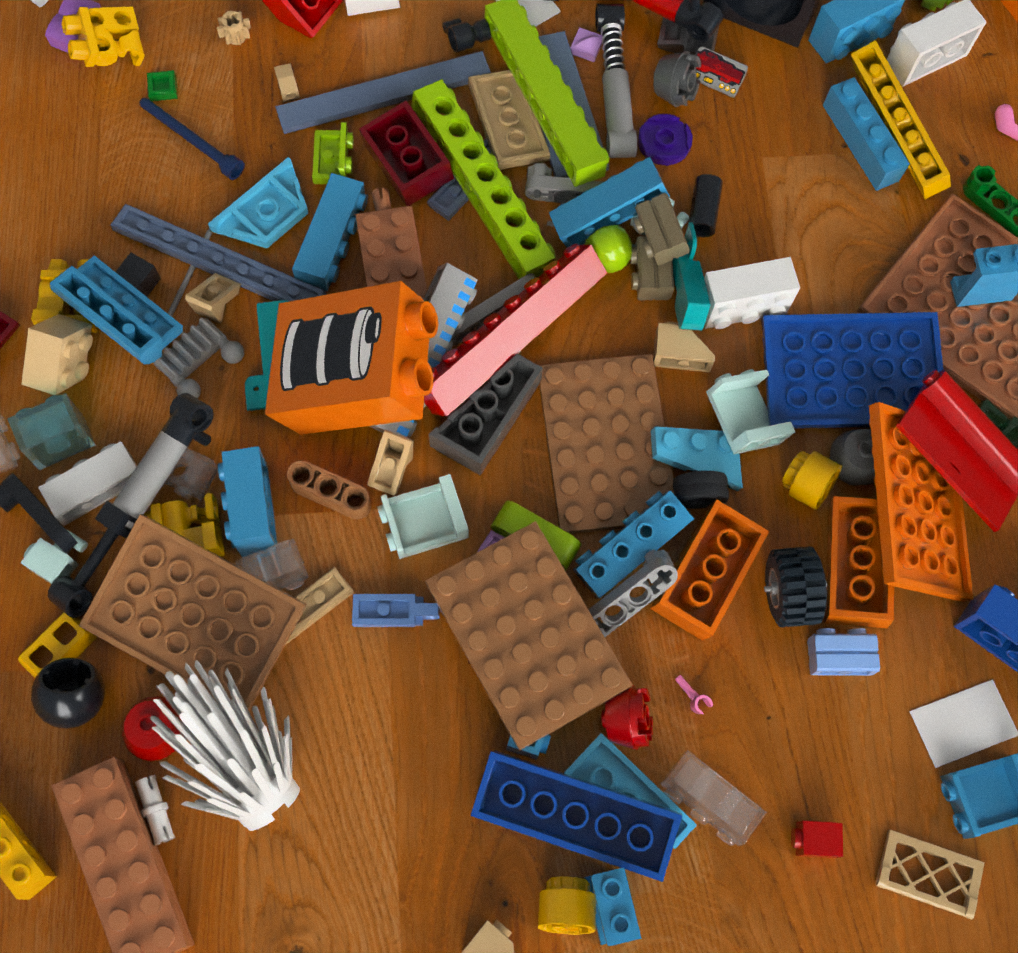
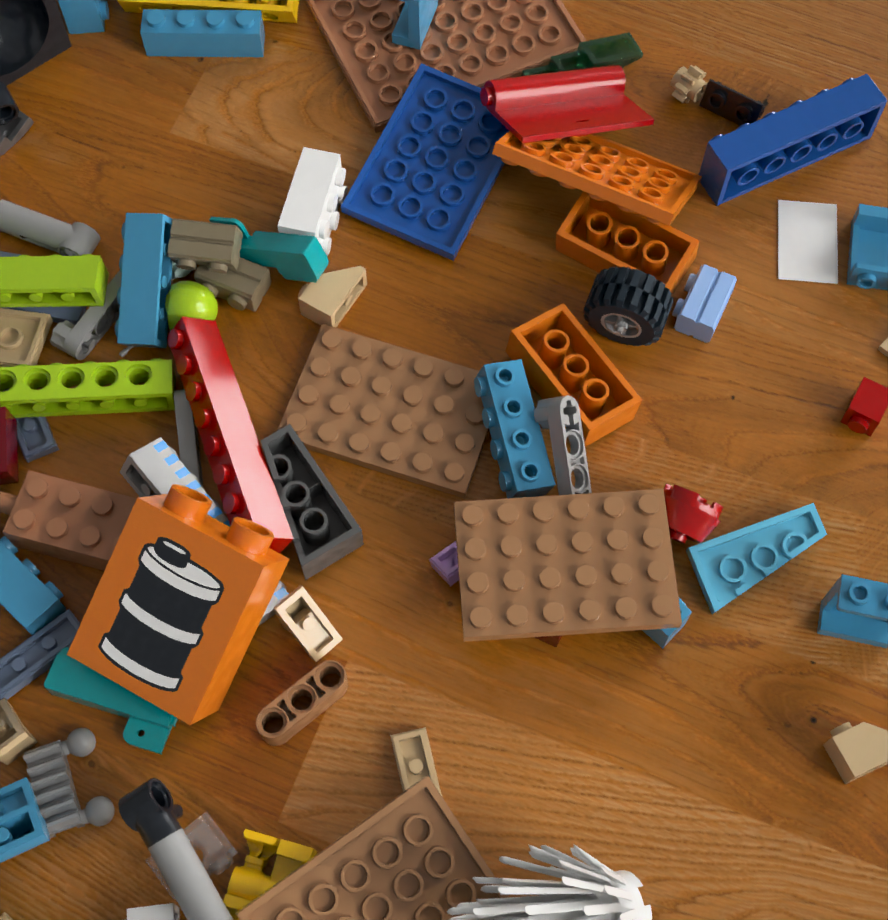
camera: 60 degrees left, 5 degrees down
(247, 500) = (276, 791): dark azure brick -> none
(277, 565) = (361, 793): clear brick -> none
(392, 610) = (467, 697): medium blue hinge -> none
(424, 518) = (382, 618): light aqua panel -> none
(515, 517) = (436, 528): lime beam -> none
(567, 906) = (844, 656): yellow piece -> none
(577, 815) = (762, 605): blue brick -> none
(665, 139) = (97, 204): dark purple tile -> none
(676, 78) = (41, 159): dark grey cone -> none
(693, 695) = (688, 450): bright pink hand -> none
(697, 452) = (448, 327): medium azure wing -> none
(700, 488) = (489, 341): black tyre -> none
(705, 204) = (191, 199): black pin -> none
(712, 799) = (792, 479): clear brick -> none
(720, 72) = (53, 123): slope -> none
(745, 413) = (429, 272): light aqua panel -> none
(811, 478) = (525, 245): yellow piece -> none
(855, 455) = (522, 198): dark grey cone -> none

